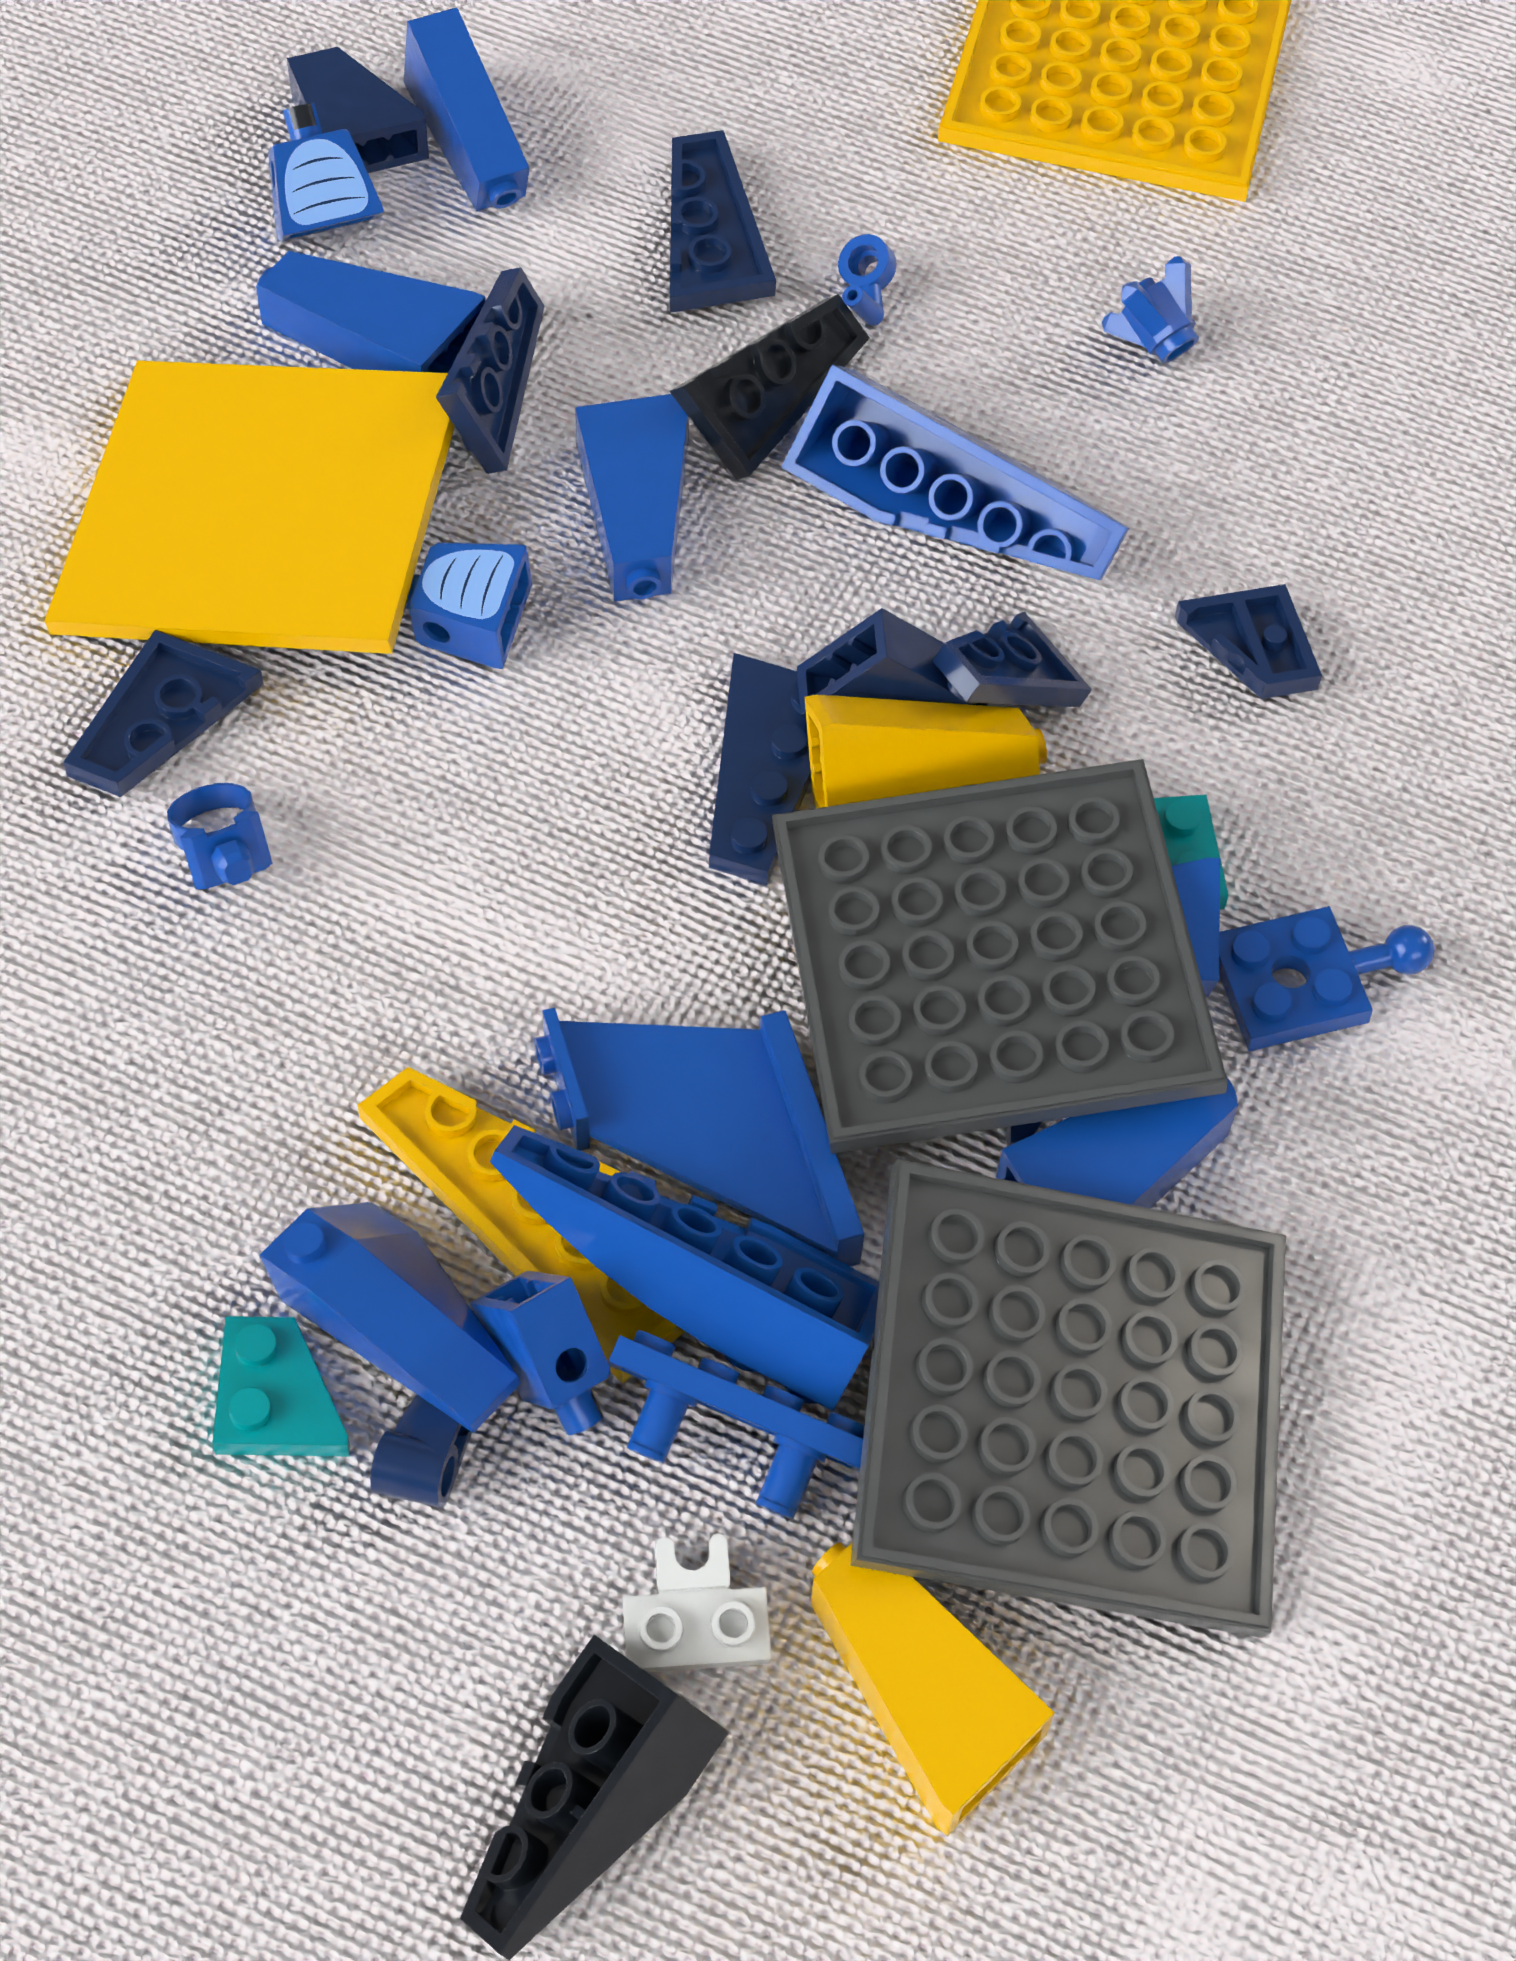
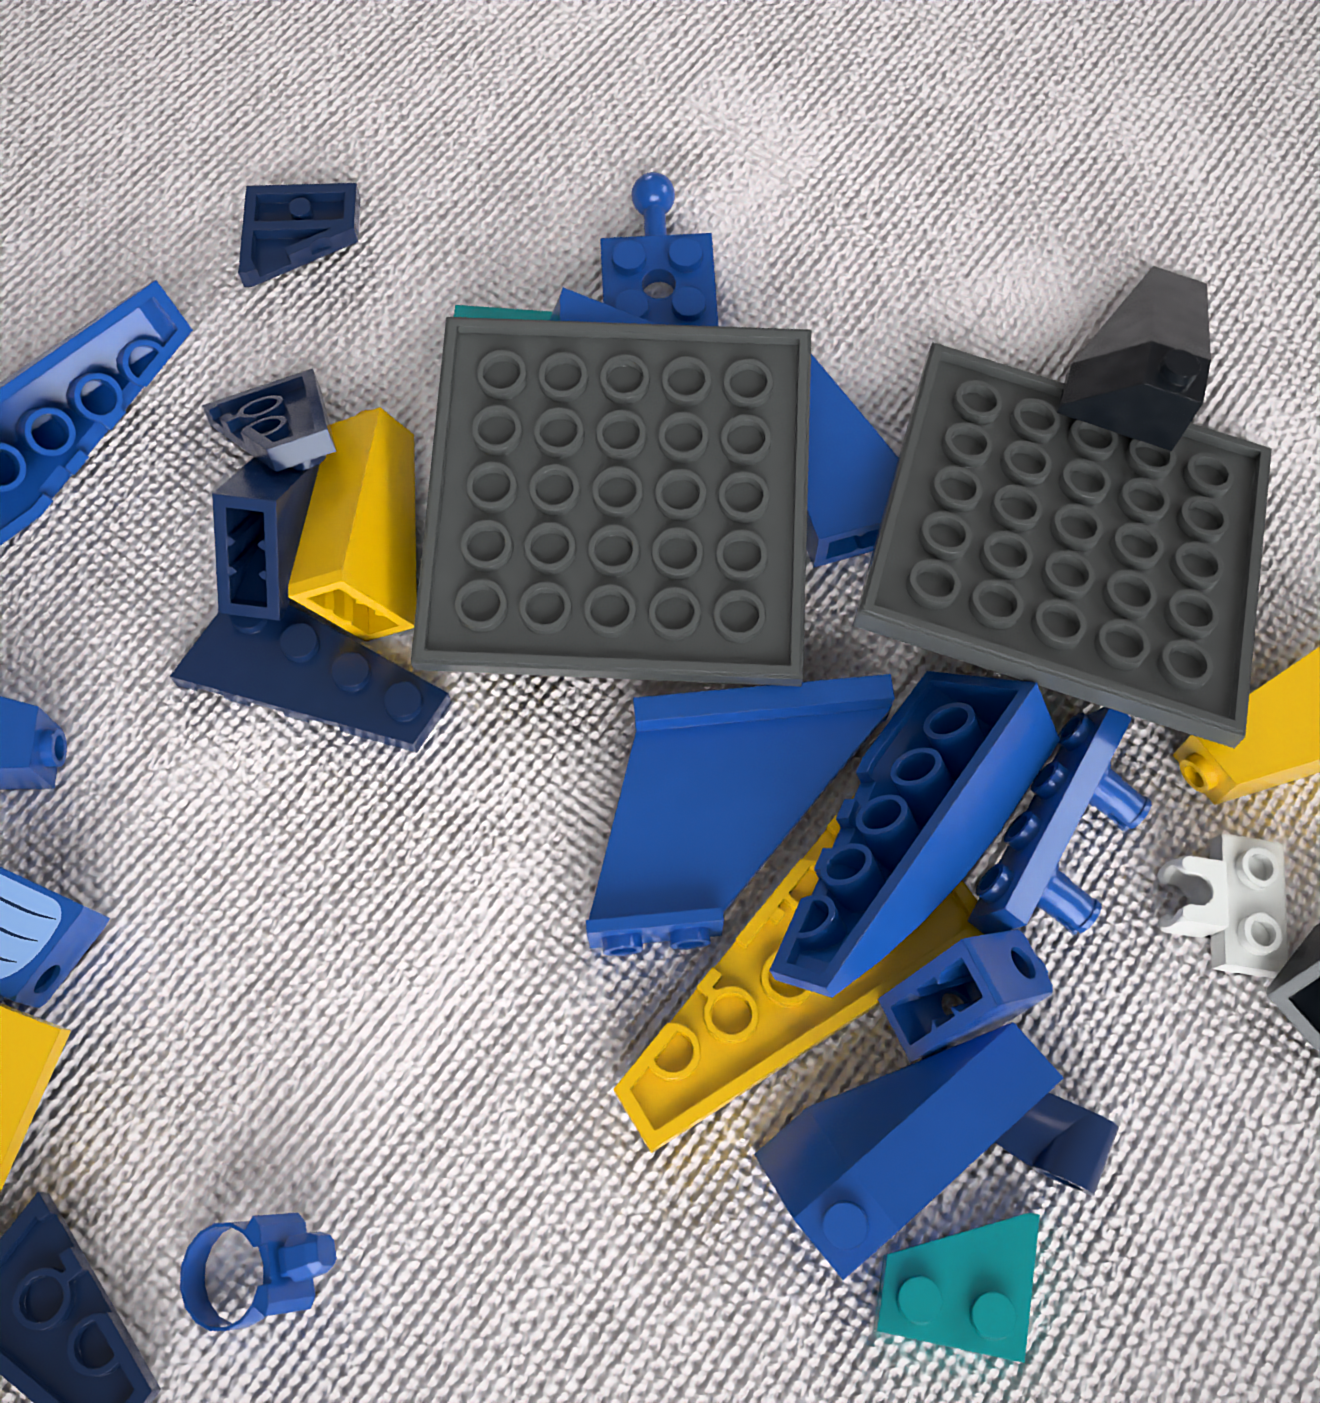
camera: 75 degrees left, 10 degrees up
(1331, 1466) = (1145, 363): none -> black wedge

